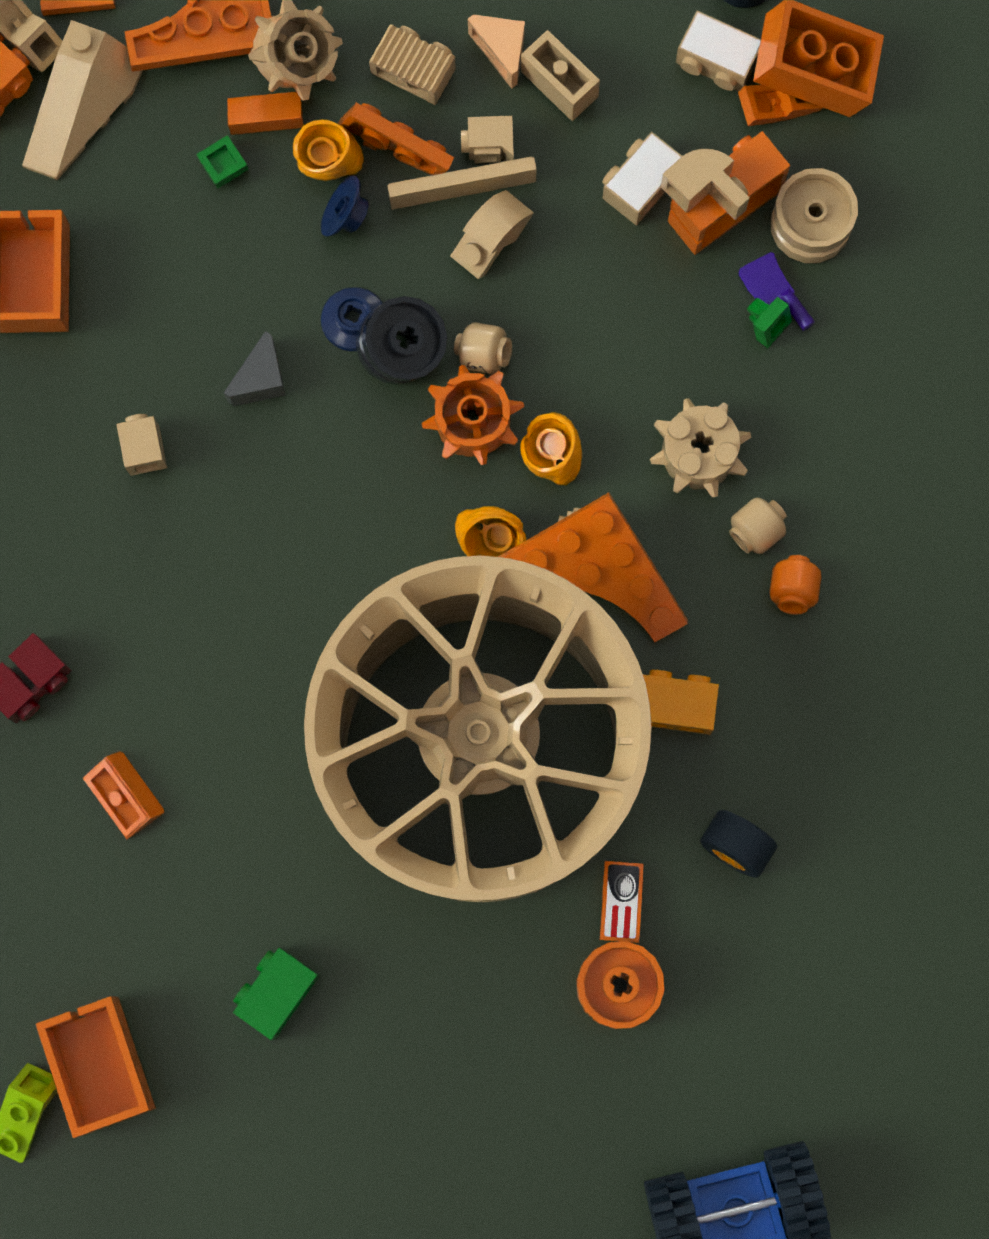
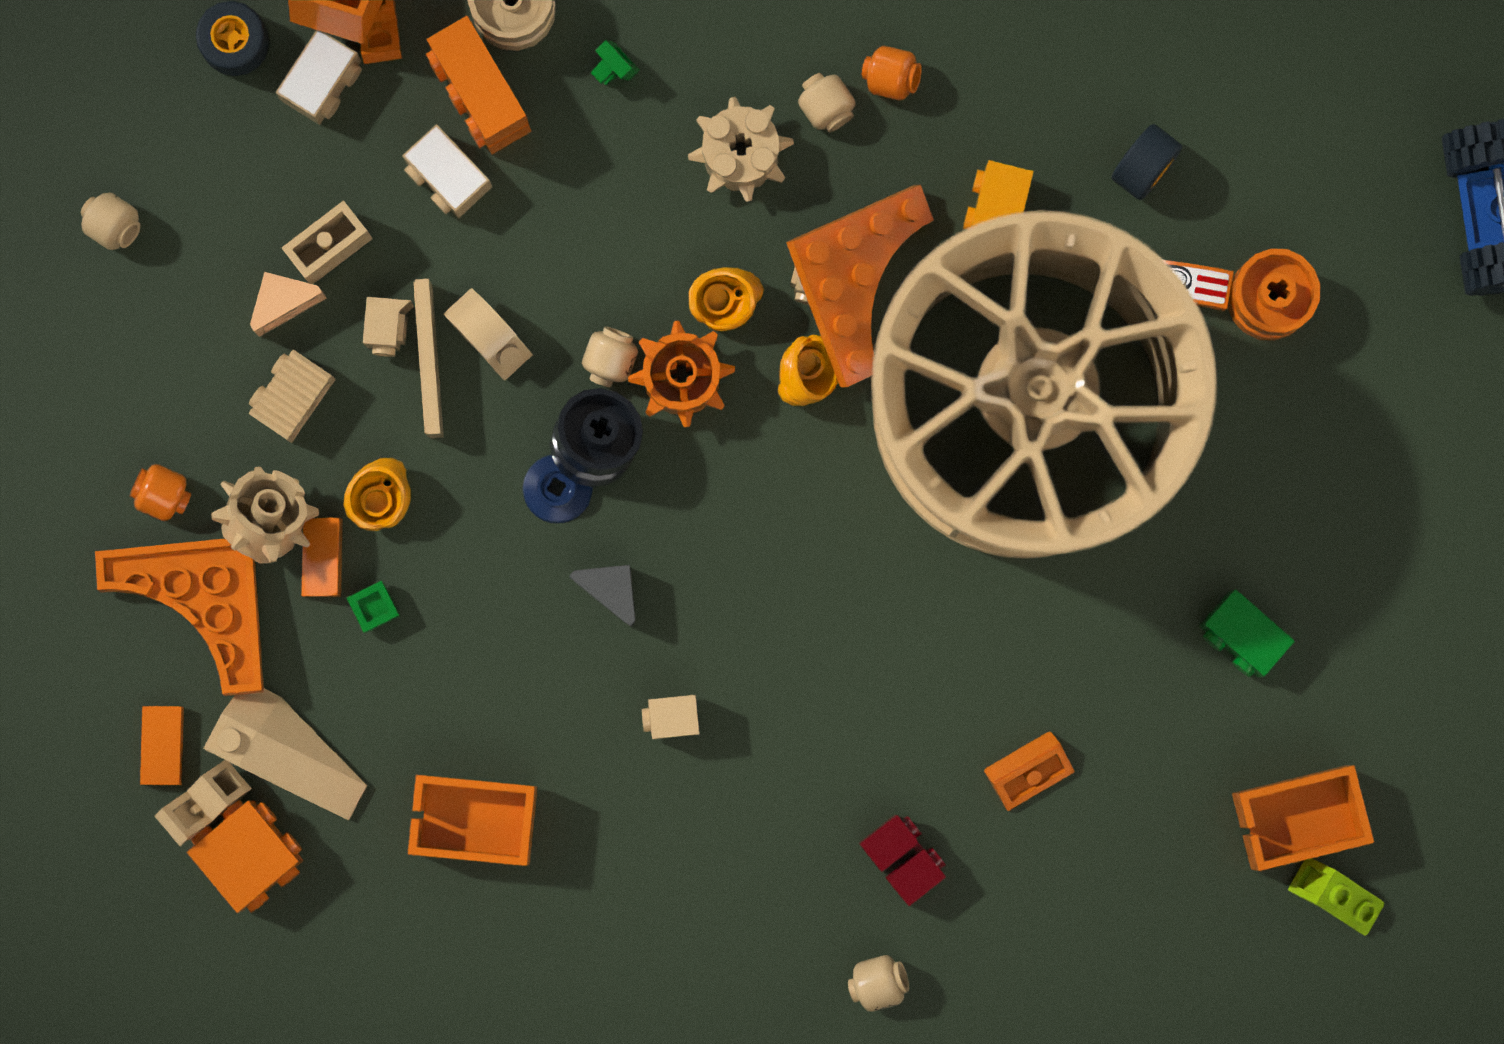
camera: 90 degrees left, 5 degrees up
(345, 208) = (442, 484): dark blue piece -> none
(383, 134) = (382, 413): orange wing -> none
(702, 174) = (471, 104): tan brick -> none
(766, 281) = (577, 58): dark purple piece -> none

